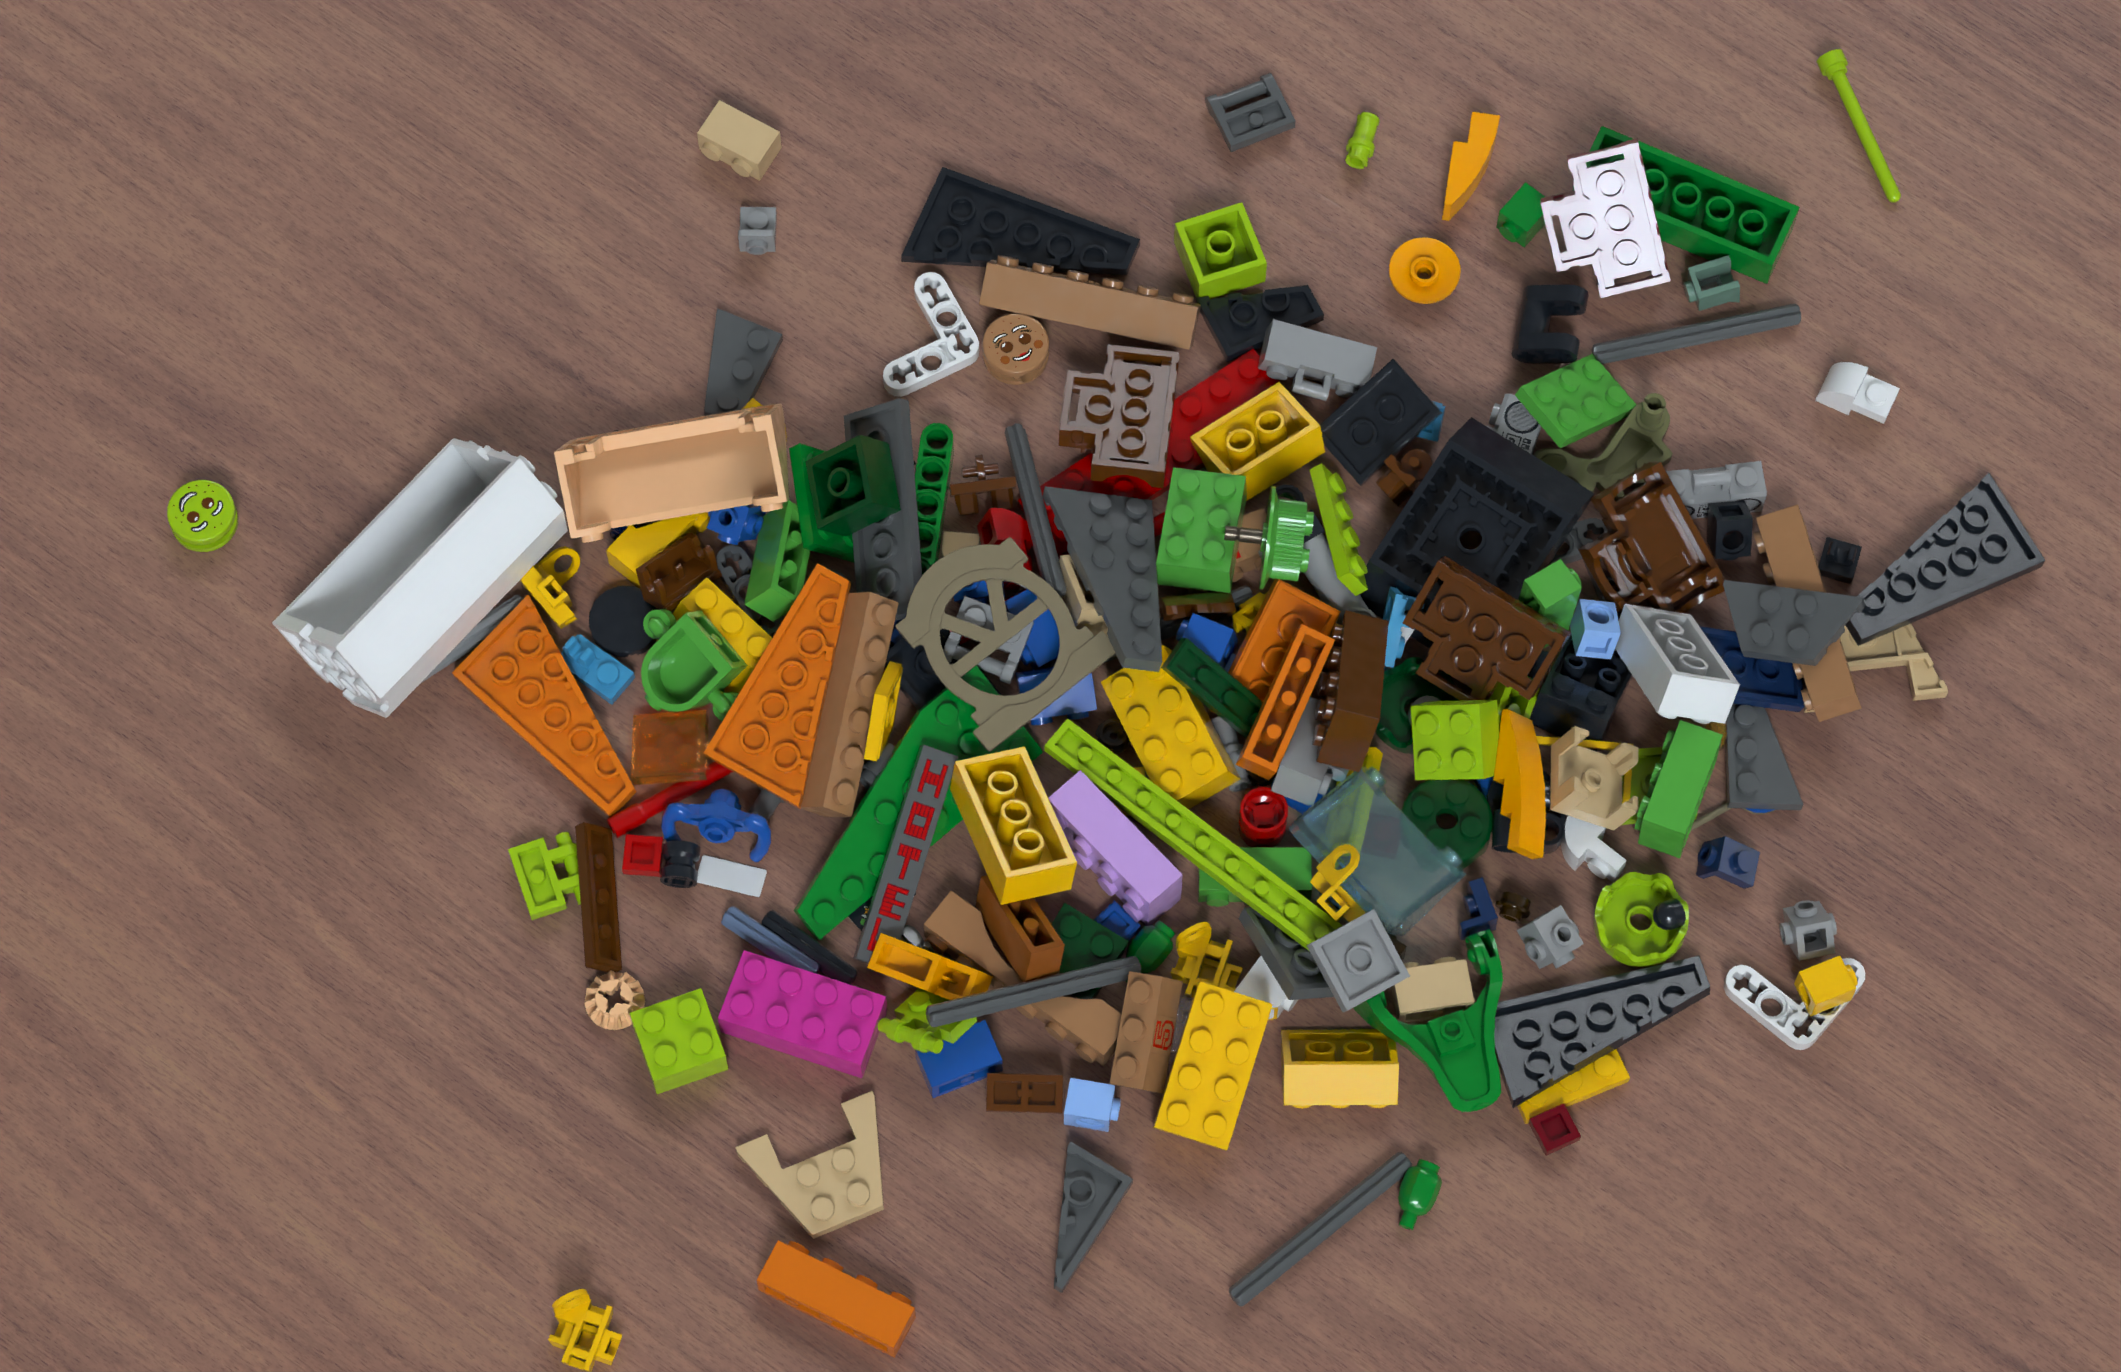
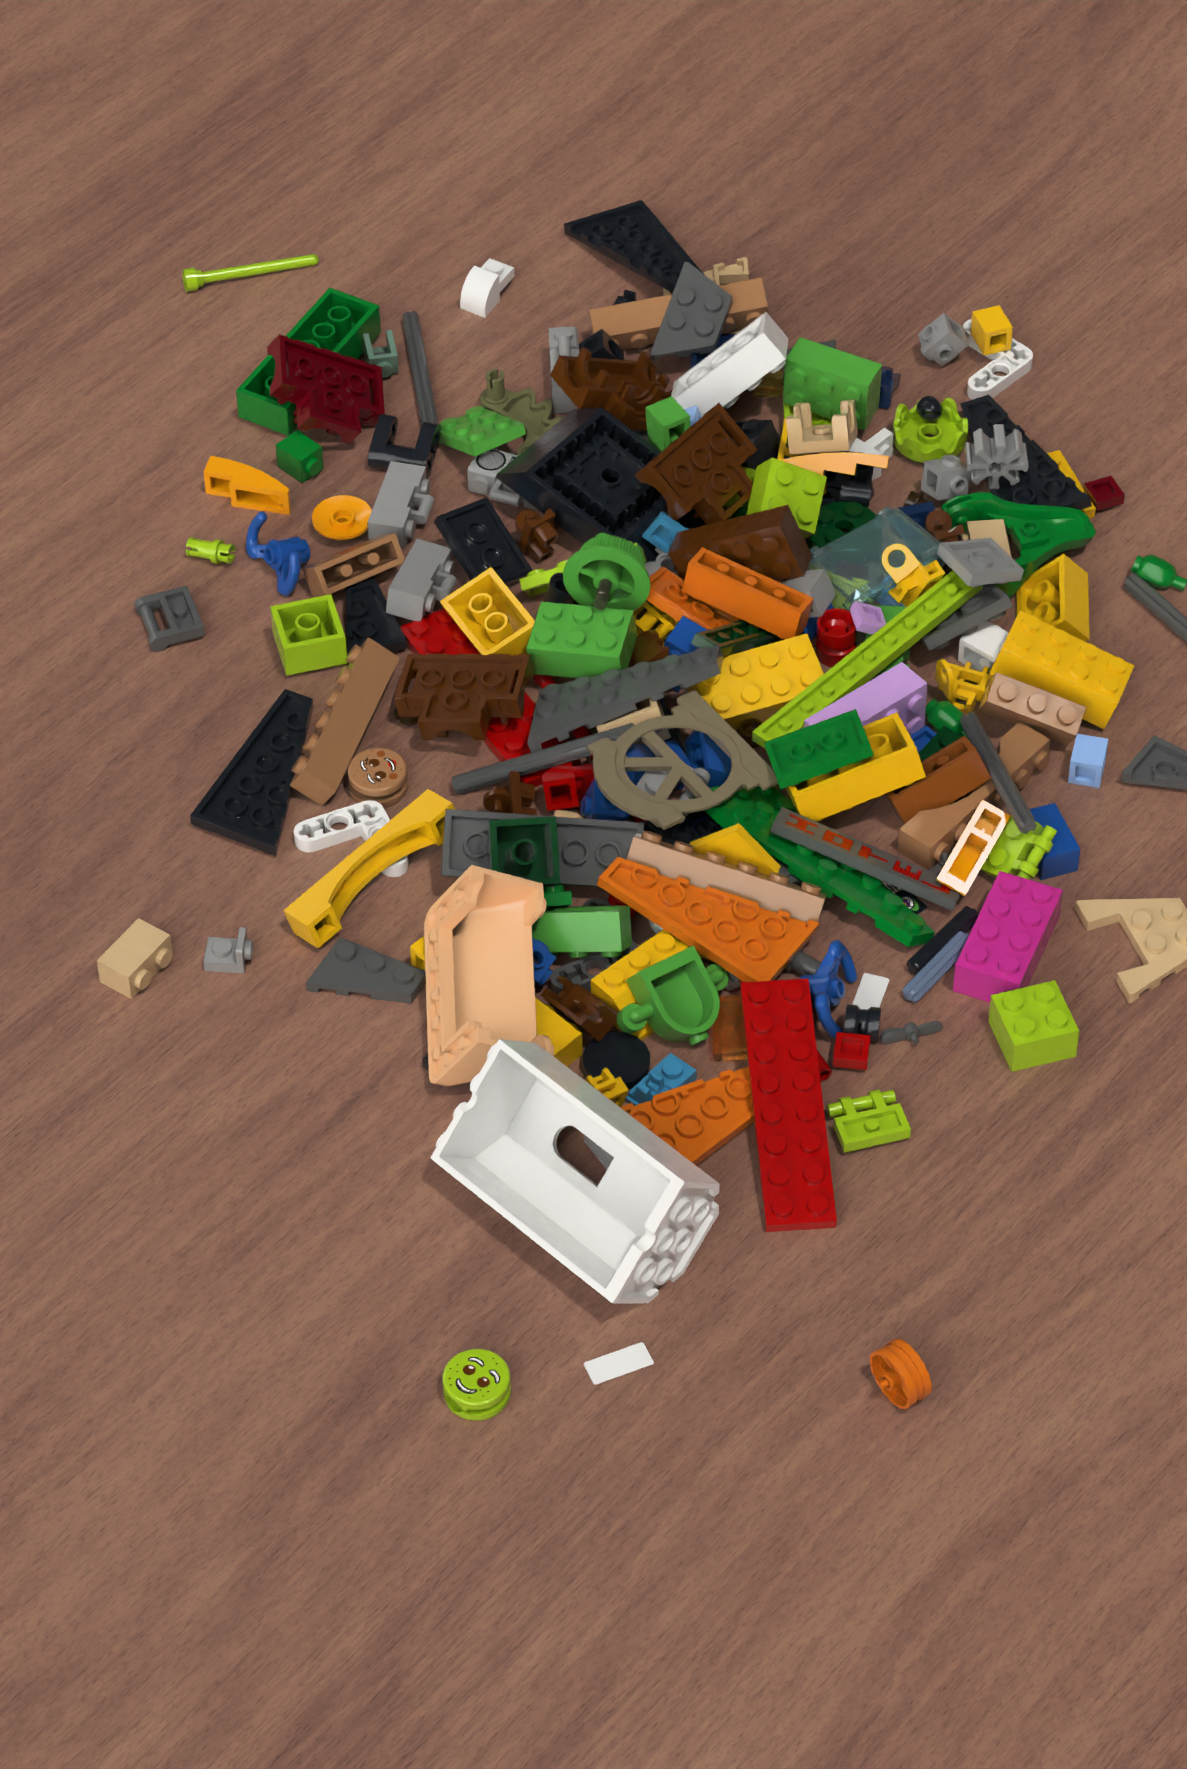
camera: 85 degrees left, 20 degrees down
(203, 907) = (900, 1373): none -> orange wheel
(240, 649) = (618, 1363): none -> white sticker
(555, 787) = (787, 1105): none -> red plate
(598, 897) = (893, 1081): reddish brown tile -> none
(619, 1015) = (995, 1089): light nougat gear -> none
(677, 918) = (910, 1032): none -> dark grey piece
(807, 307) = (319, 910): none -> yellow arch
(1016, 780) = (818, 749): none -> green plate
(1024, 1093) = (1080, 796): reddish brown hinge -> none
(1272, 843) = (867, 617): none -> lavender tile
(1338, 288) = (353, 564): none -> medium nougat brick
(1354, 213) = (281, 554): none -> blue piece
(1433, 930) = (939, 525): none -> reddish brown hips
(1451, 329) = (399, 496): none -> light grey piece
(1565, 985) = (996, 456): none -> light grey gear

